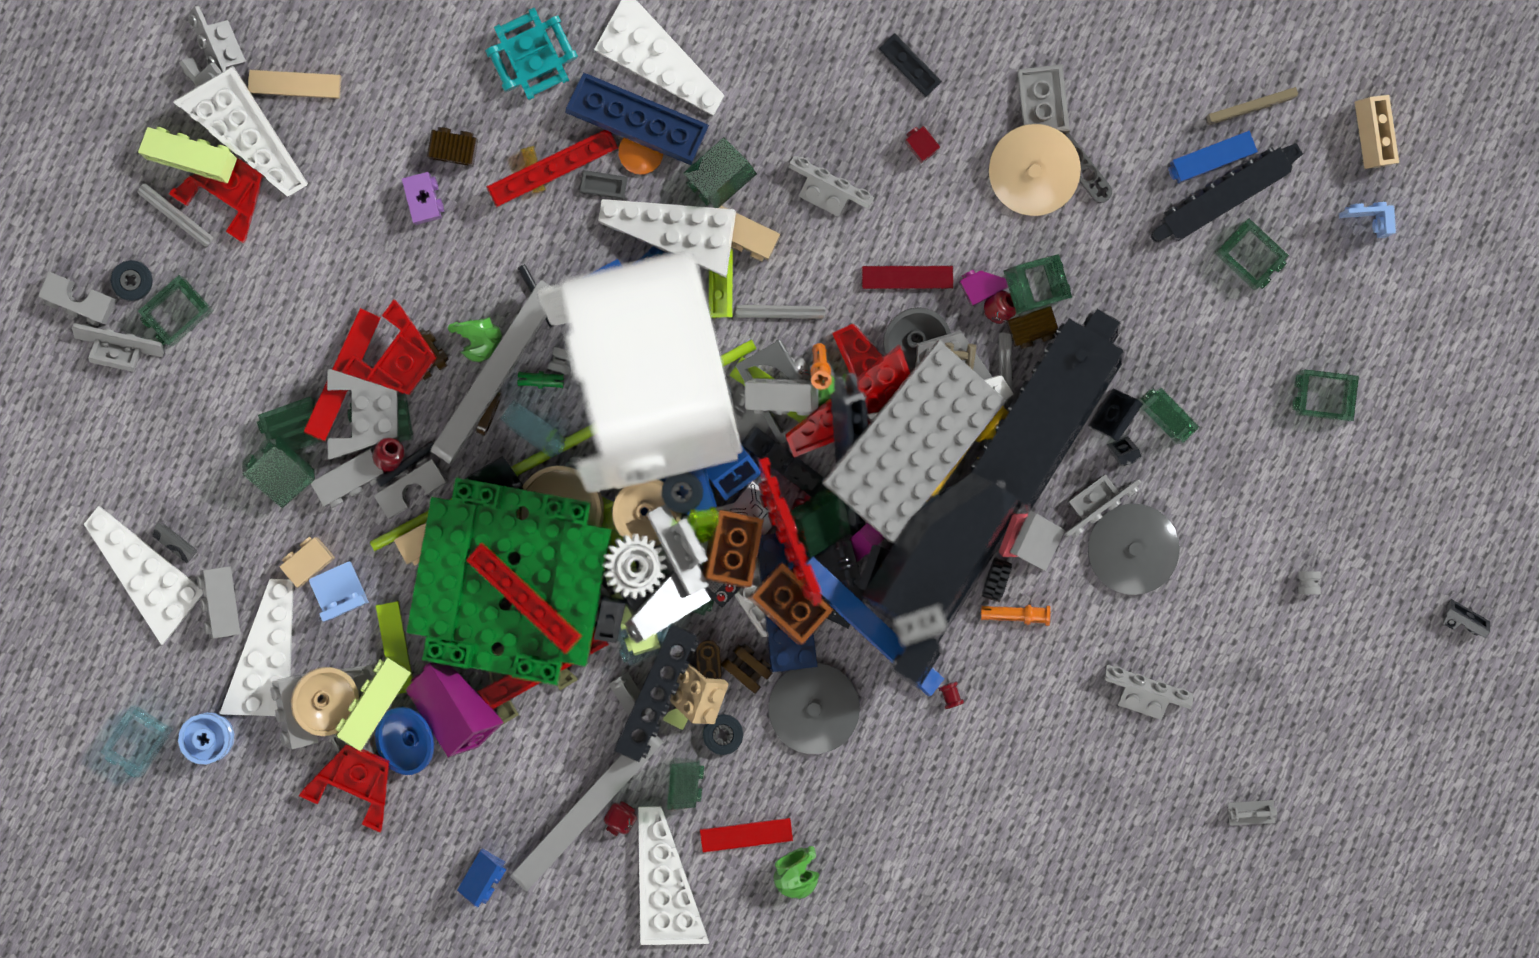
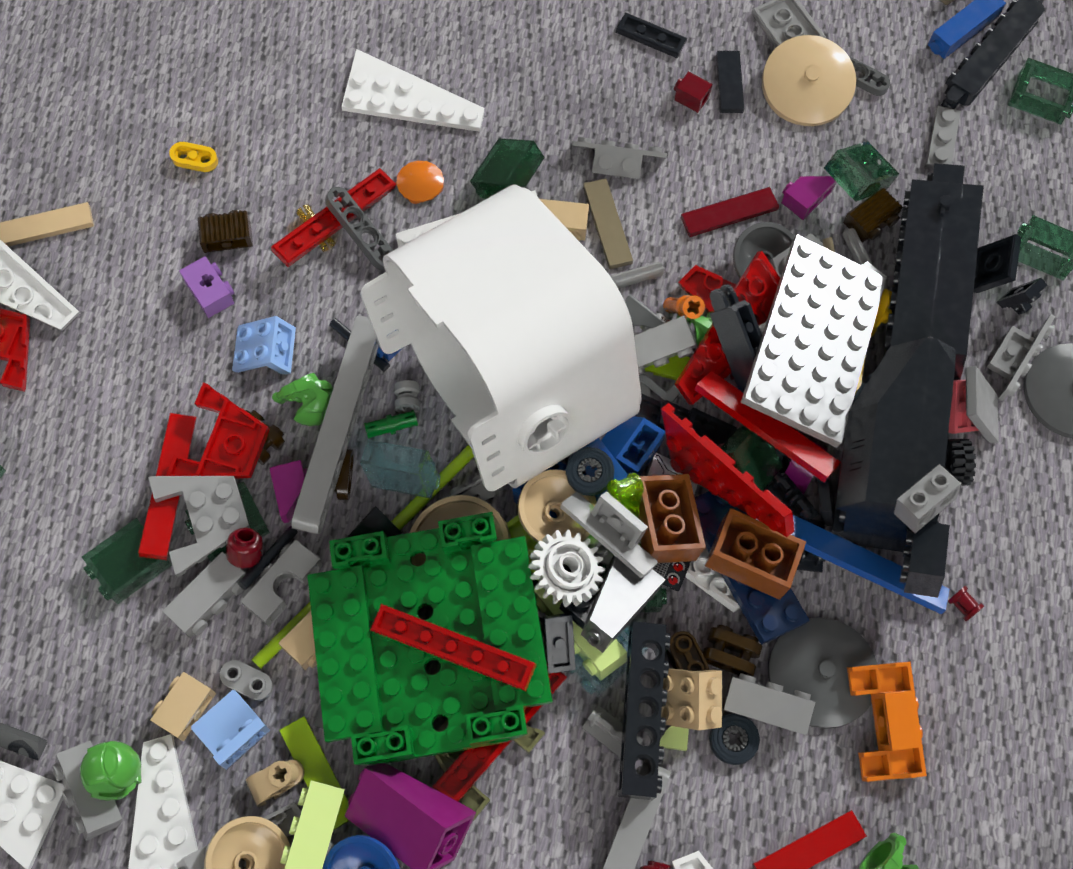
camera: 25 degrees left, 20 degrees down
(240, 597) = (110, 770): none -> bright green helmet
(278, 471) = (119, 609): clear green brick -> none
(359, 644) = (274, 780): none -> tan piece
(361, 556) = (245, 680): none -> light grey plate
(440, 409) = (287, 485): none -> magenta slope
(446, 58) = (195, 156): none -> yellow plate
(455, 271) = (263, 344): none -> light blue bracket
(531, 54) = (280, 125): teal brick -> none
(568, 189) = (356, 230): none -> dark grey beam
(603, 184) = (394, 220): dark grey tile -> none
(637, 118) = (405, 150): dark blue plate -> none
(683, 783) = (714, 809): clear green slope -> none
(758, 720) = (770, 704): none -> light grey brick
(793, 251) = (607, 223): none -> dark tan tile
(850, 766) = (895, 721): none -> orange bracket
(856, 527) = (770, 429): none -> red tile
(963, 141) = (730, 82): none -> black tile
(999, 307) = (834, 205): dark red head -> none
(1027, 615) = (1002, 491): orange pin -> none
(1135, 269) = (943, 136): none -> light grey plate

